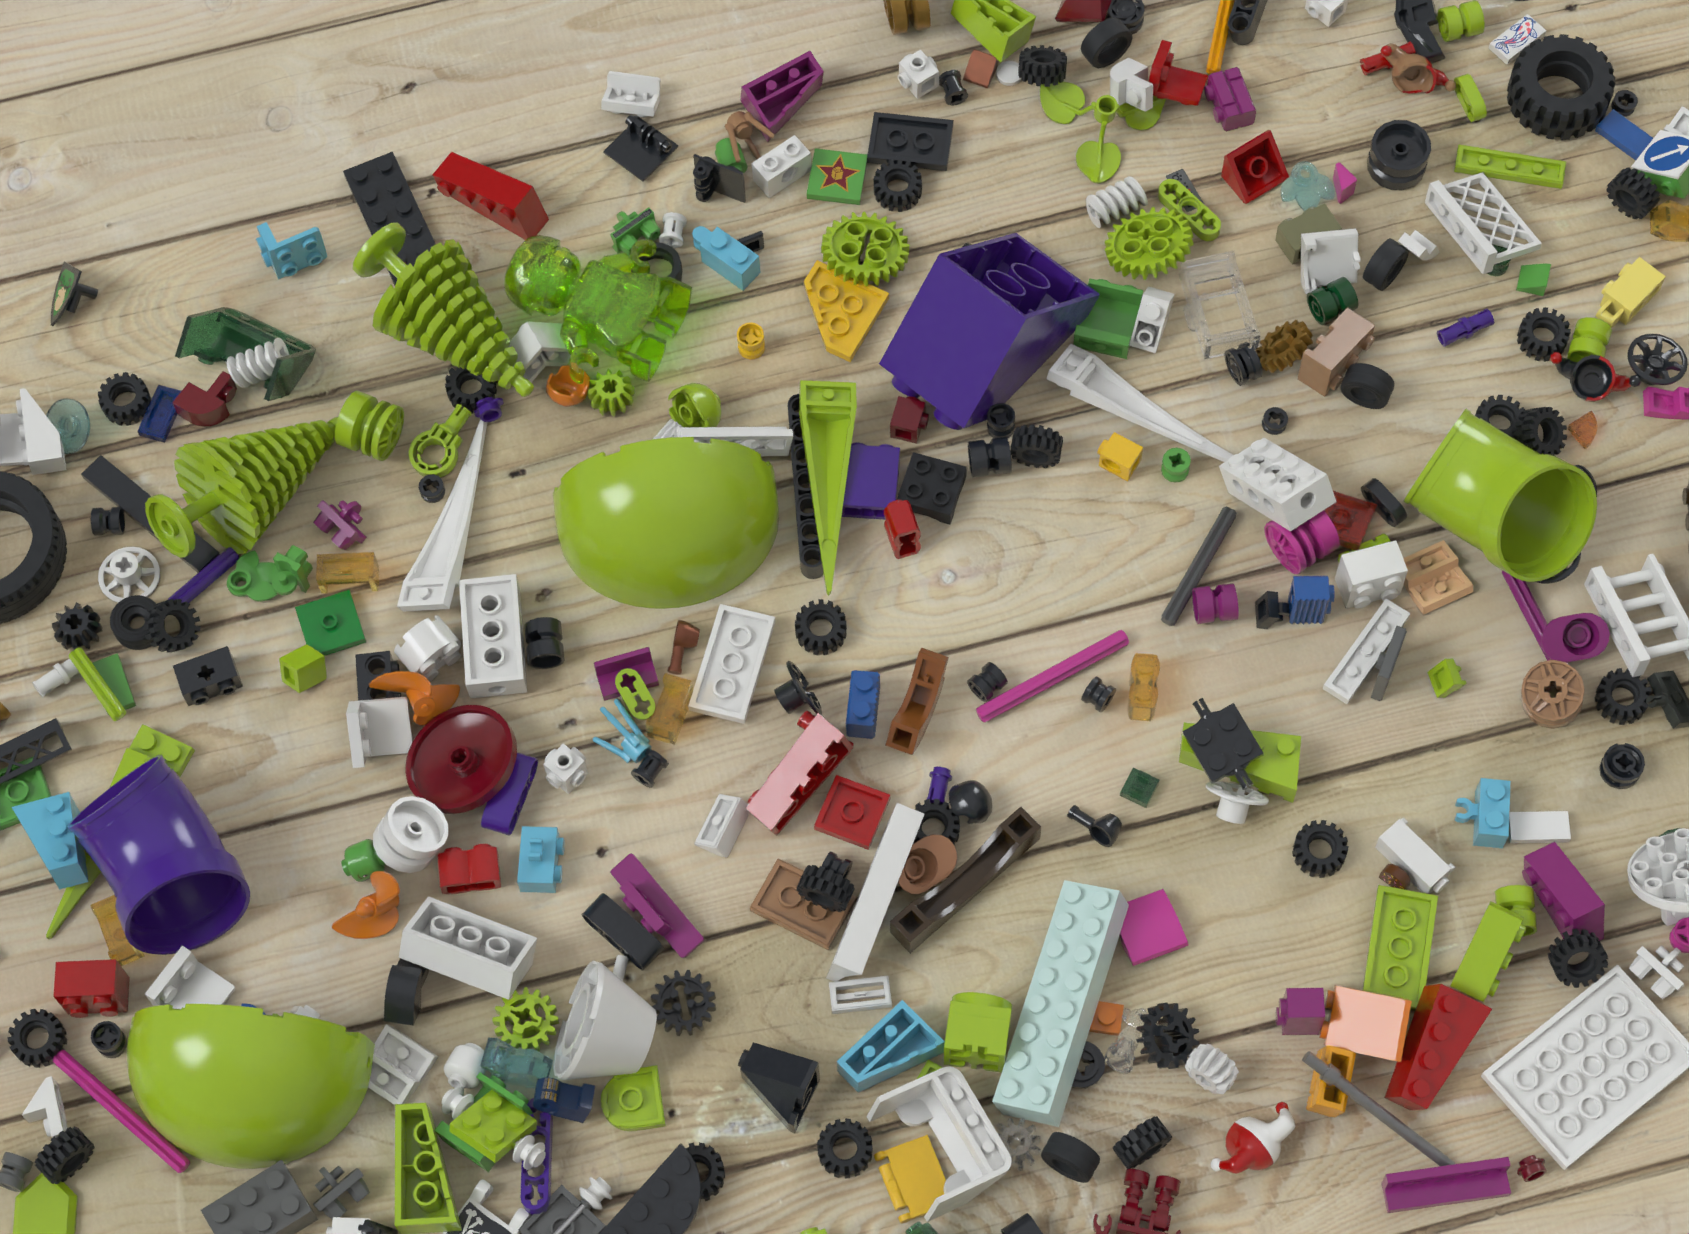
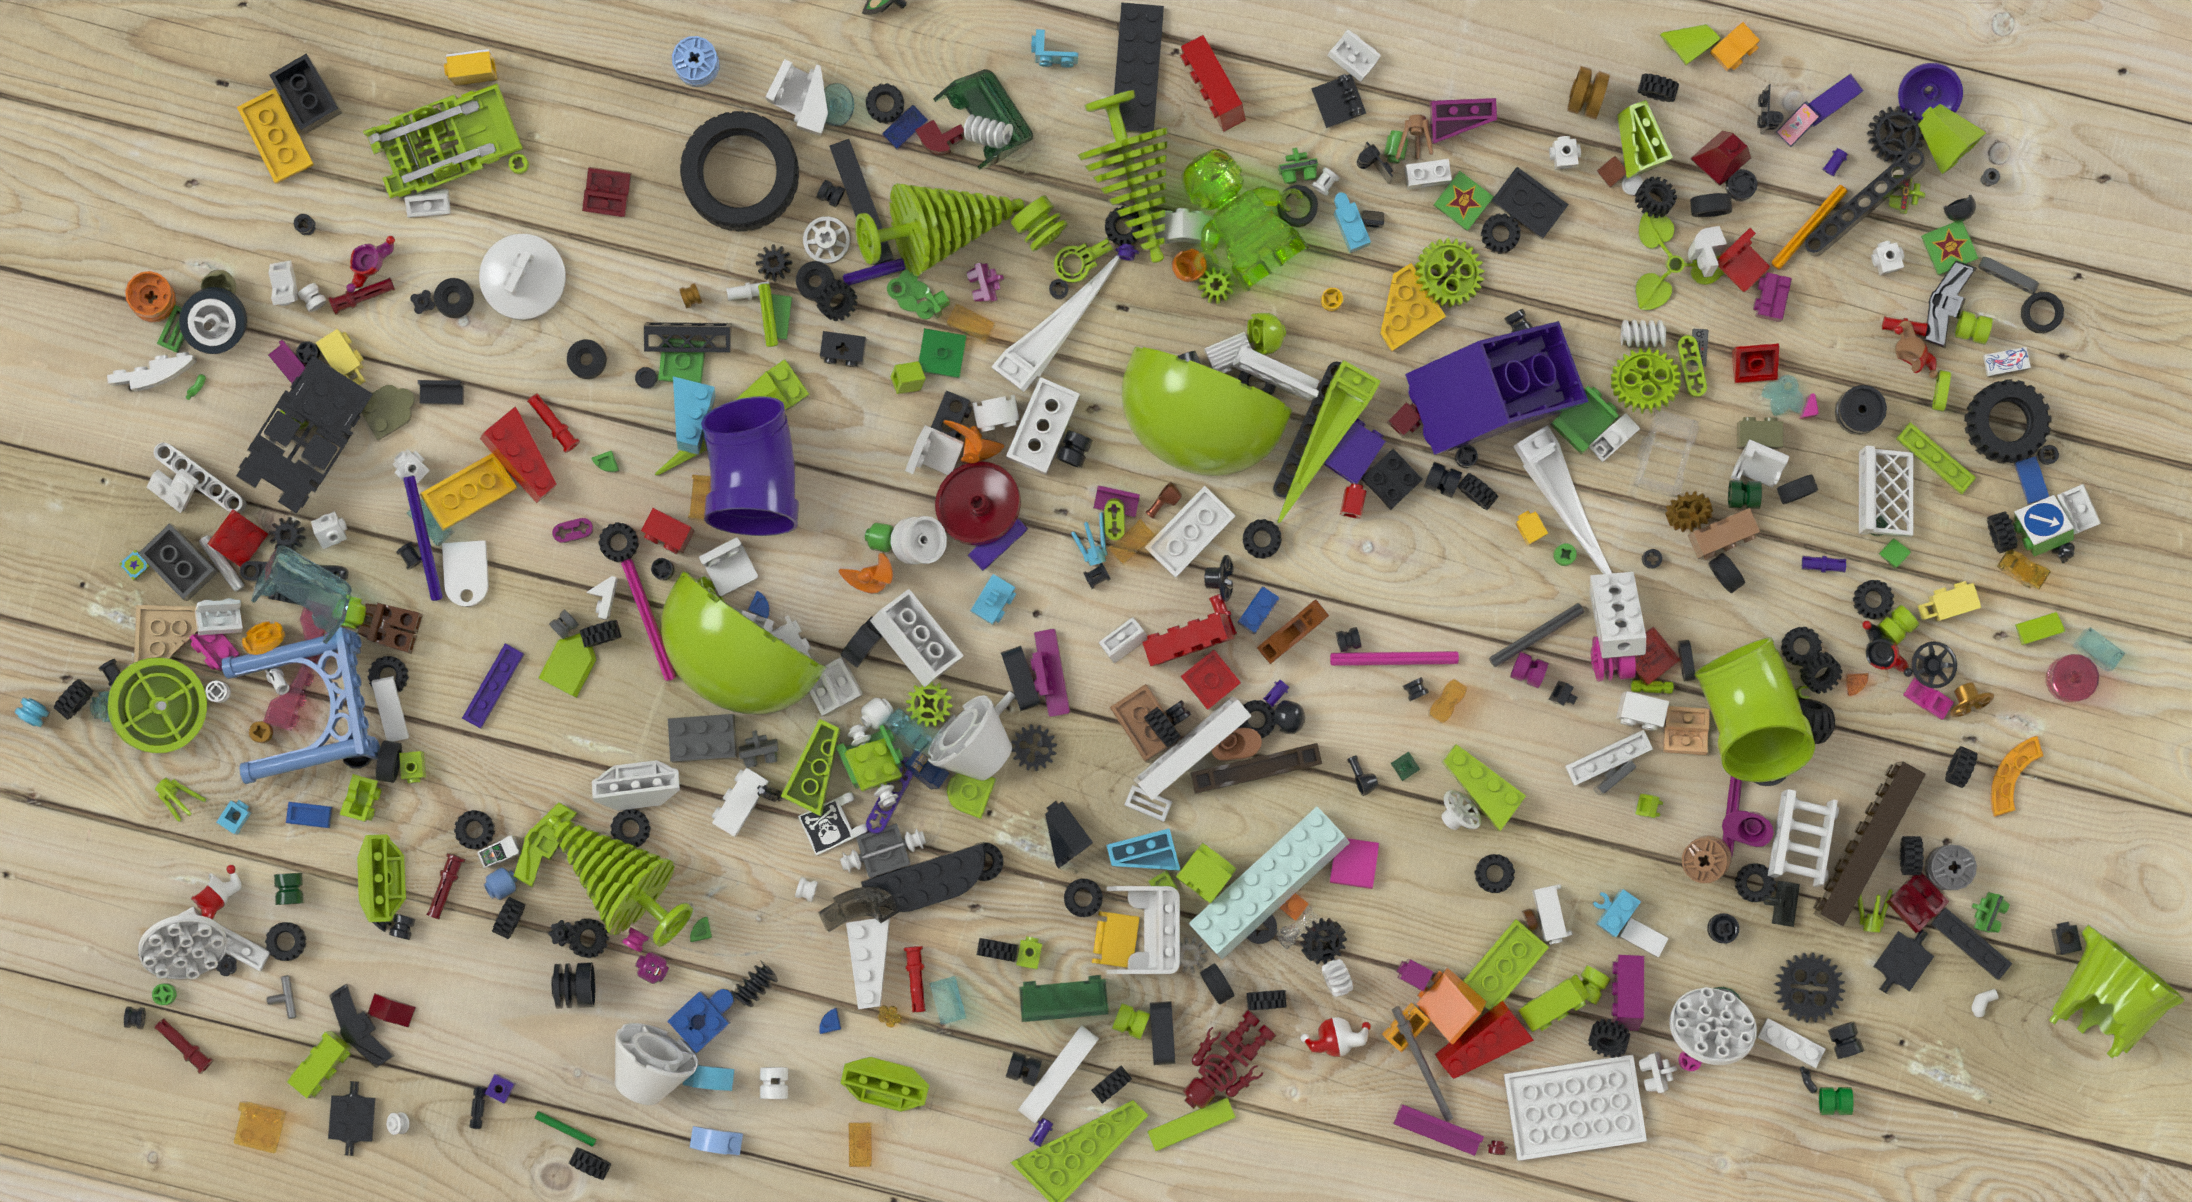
camera: 25 degrees right, 20 degrees up
(469, 869) = (945, 581): red brick -> none
(563, 775) = (1045, 554): white brick -> none
(953, 88) = (1584, 176): black bush -> none
(1223, 743) = (1470, 775): black plate -> none
(1243, 363) = (1654, 507): black wheel -> none
(1310, 599) = (1591, 704): blue brick -> none
(1419, 245) = (1828, 488): white slope -> none

